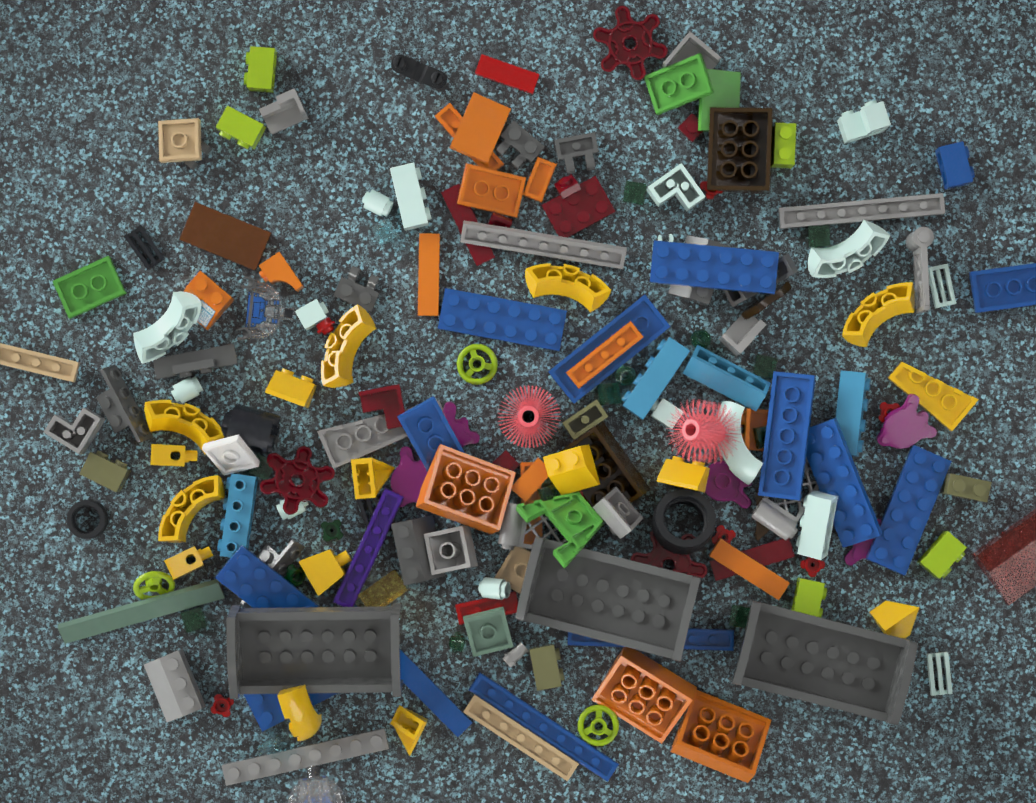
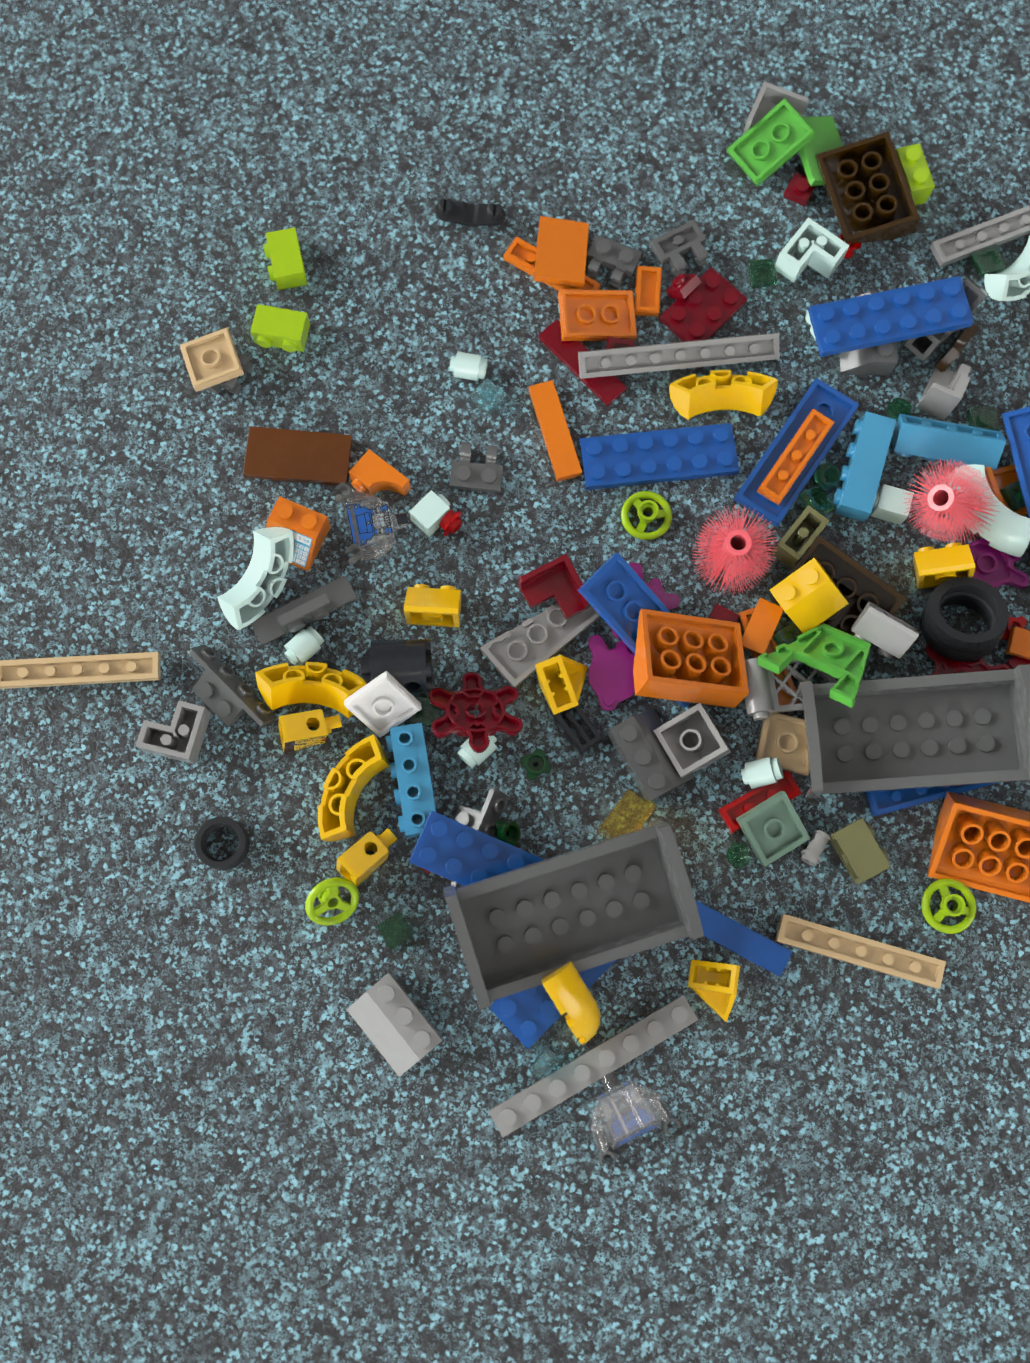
camera: 20 degrees left, 10 degrees down
(89, 287) = (147, 562): bright green tile -> none
(105, 471) = (228, 775): olive brick -> none
(134, 233) = (186, 483): black tile -> none
(141, 611) = (323, 940): sand green tile -> none
(216, 708) = (460, 1024): red plate -> none
(284, 112) = (329, 295): light grey panel -> none
(325, 569) = (542, 813): yellow torso -> none
(343, 345) = (480, 536): yellow brick -> none
(368, 548) = (589, 770): dark purple tile -> none
(410, 196) = (504, 348): light aqua brick -> none
(507, 74) = (571, 190): red tile -> none
(543, 726) = (883, 929): blue tile -> none
(638, 31) = (702, 105): dark red plate -> none
(867, 122) = (994, 124): light aqua brick -> none

